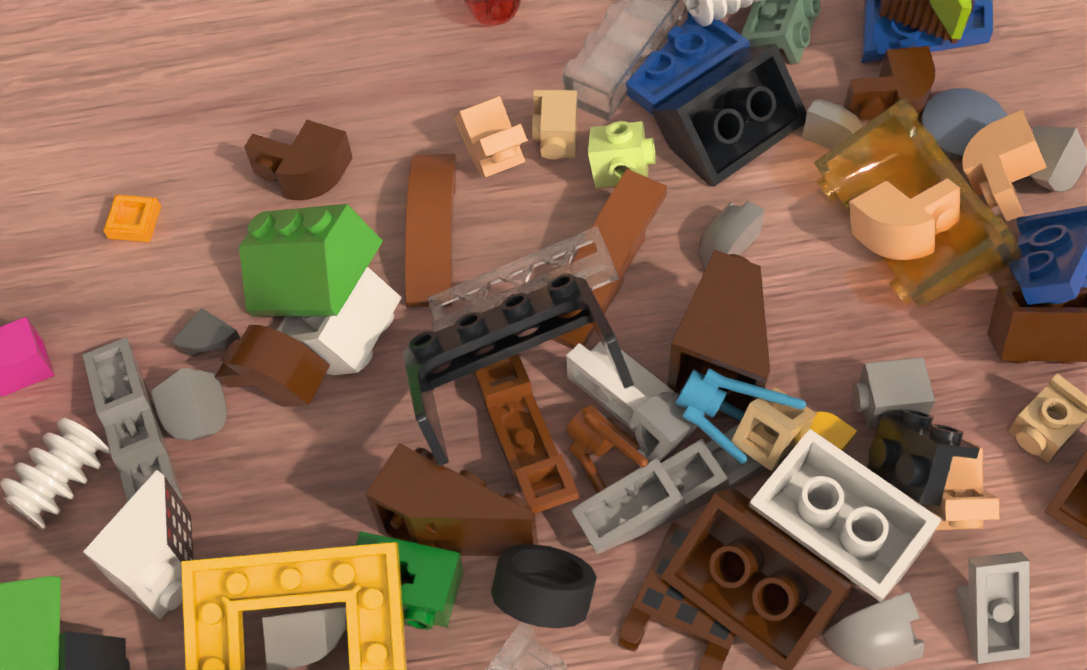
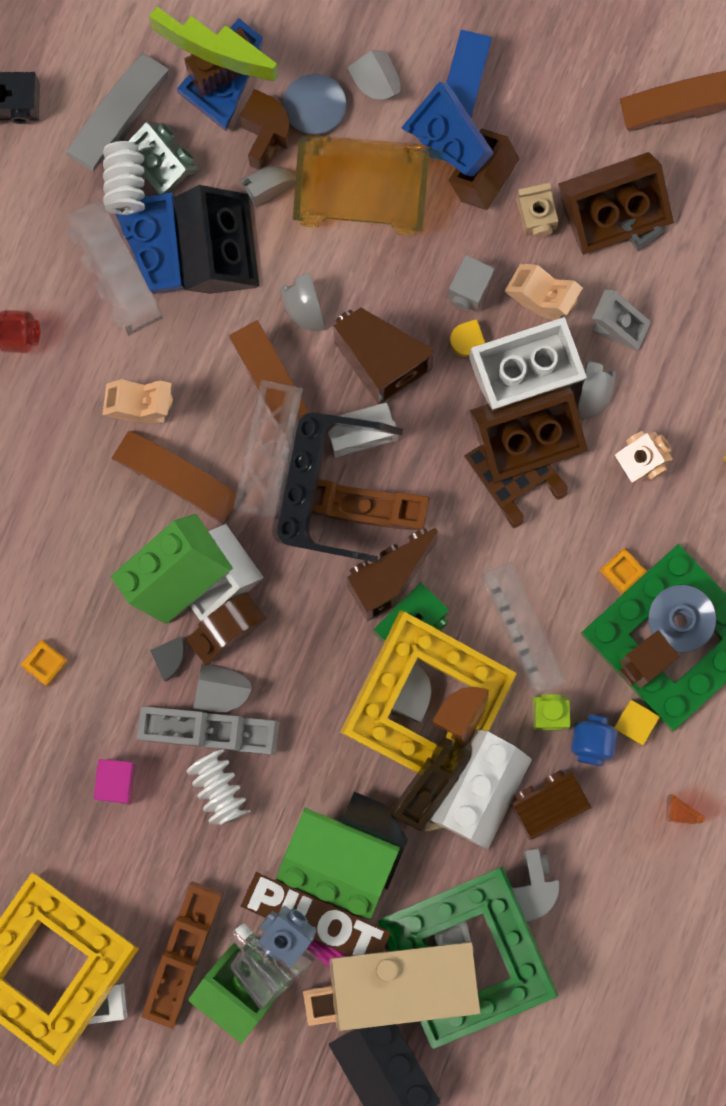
camera: 60 degrees left, 20 degrees up
(145, 547) = (314, 752): white slope -> none
(307, 166) = (83, 531): reddish brown brick -> none
(543, 586) = (477, 558): black tyre -> none
(555, 123) = (153, 354): tan brick -> none
(597, 435) = (387, 461): dark orange plant -> none
(619, 148) = (207, 330): yellowish green brick -> none
(660, 426) = (411, 418): light grey brick -> none
(661, 493) = (446, 442): light grey slope -> none
(703, 396) = (412, 388): dark azure plant -> none
(771, 430) = (453, 365): tan brick -> none
(904, 226) = (367, 204): light nougat brick -> none
(916, 454) = (518, 300): black bracket -> none
(1000, 156) = (358, 108): light nougat brick -> none

